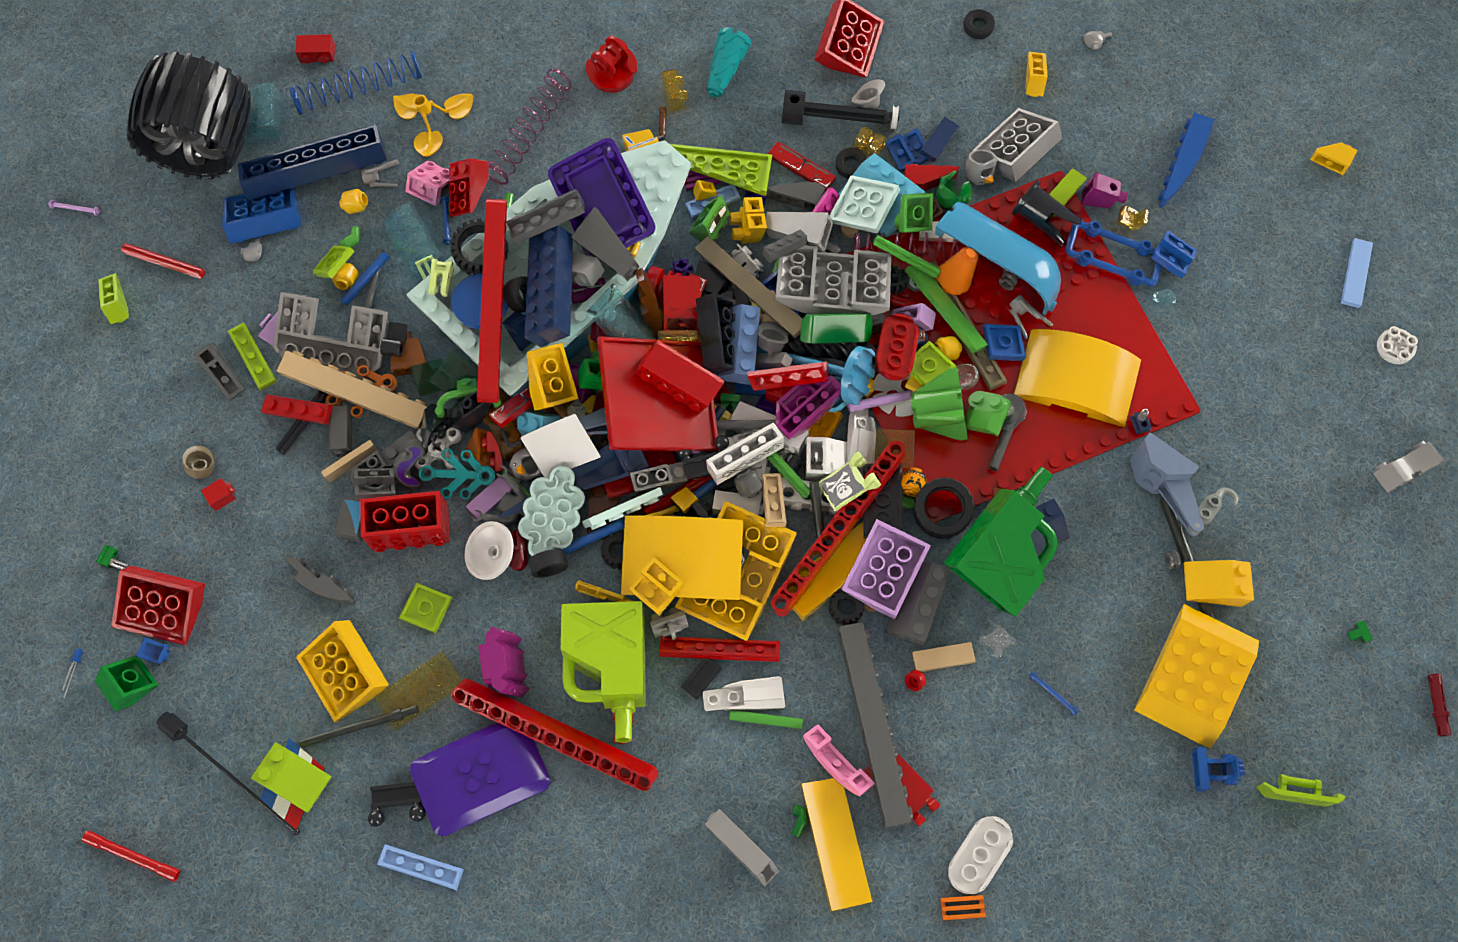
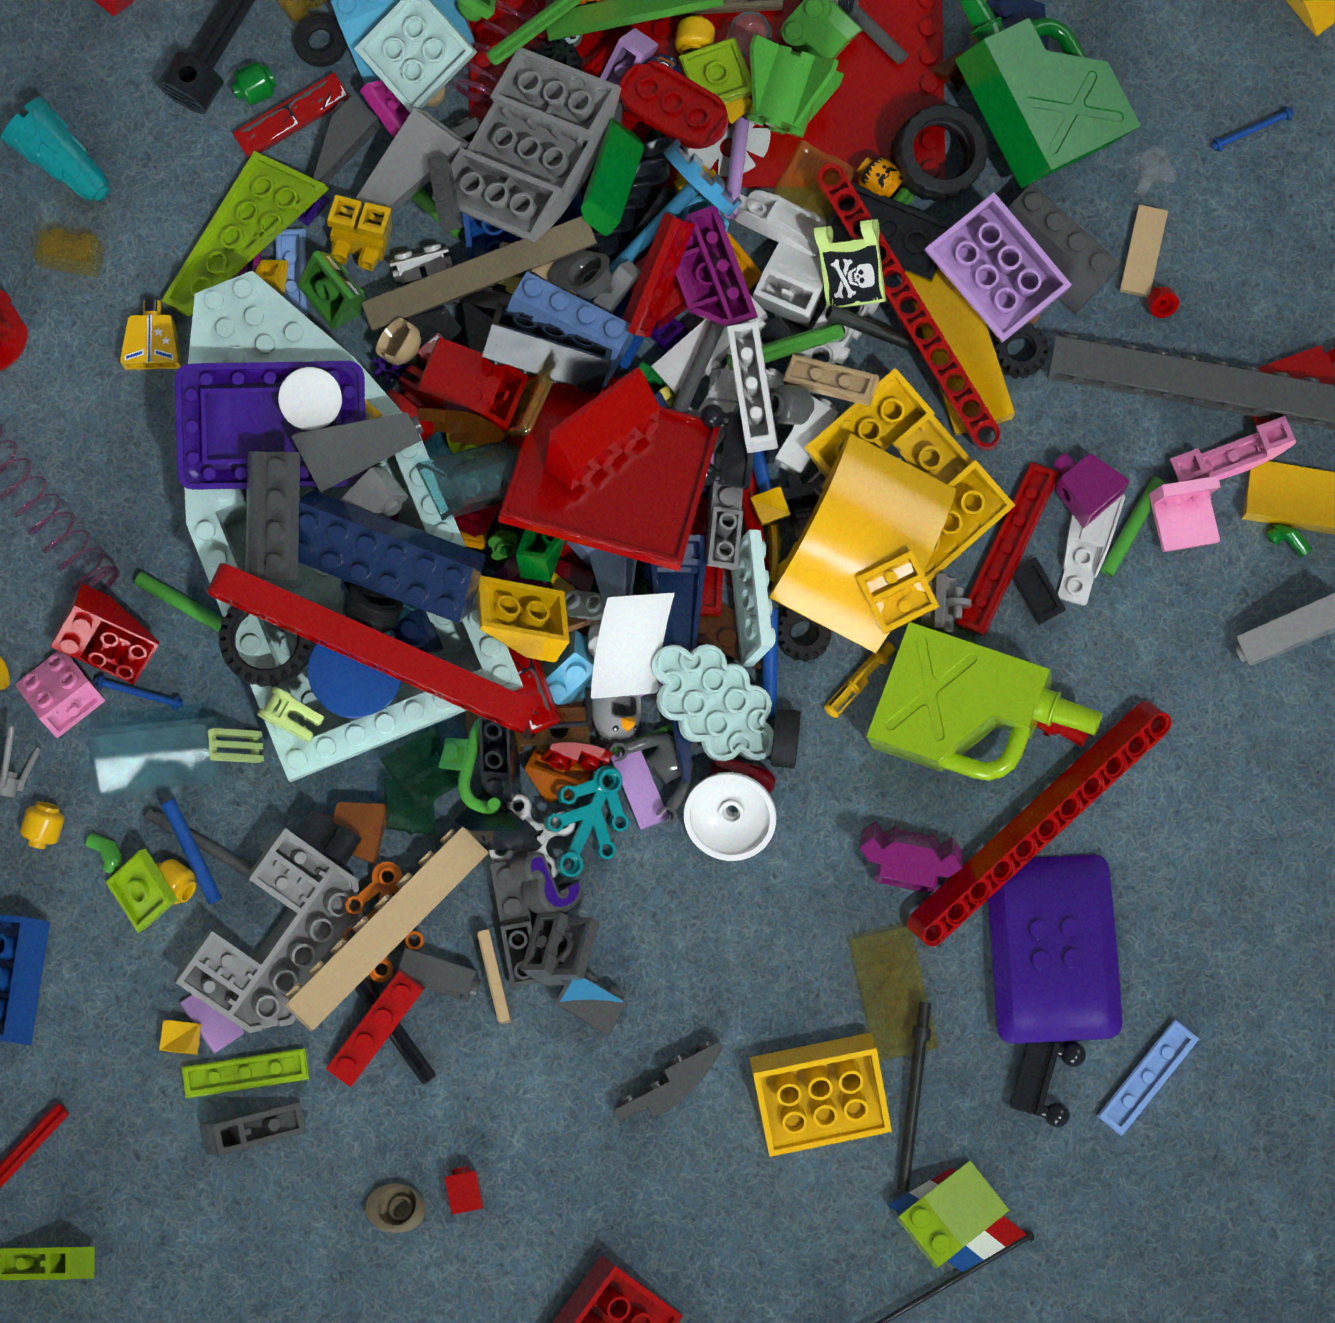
camera: 65 degrees left, 10 degrees up
(253, 251) = (61, 1015): light grey piece -> none
(259, 314) = (180, 1037): none -> yellow slope
(405, 521) = (637, 918): red brick -> none
(425, 608) = (772, 942): lime tile -> none
(622, 210) = (310, 398): none -> white tile
(662, 121) = (114, 293): reddish brown wheel -> none
(691, 262) = (399, 342): none -> tan hair
(777, 680) = (1088, 486): none -> magenta torso
(785, 747) = (1185, 513): none -> bright pink bracket
(810, 140) = (254, 83): none -> green head

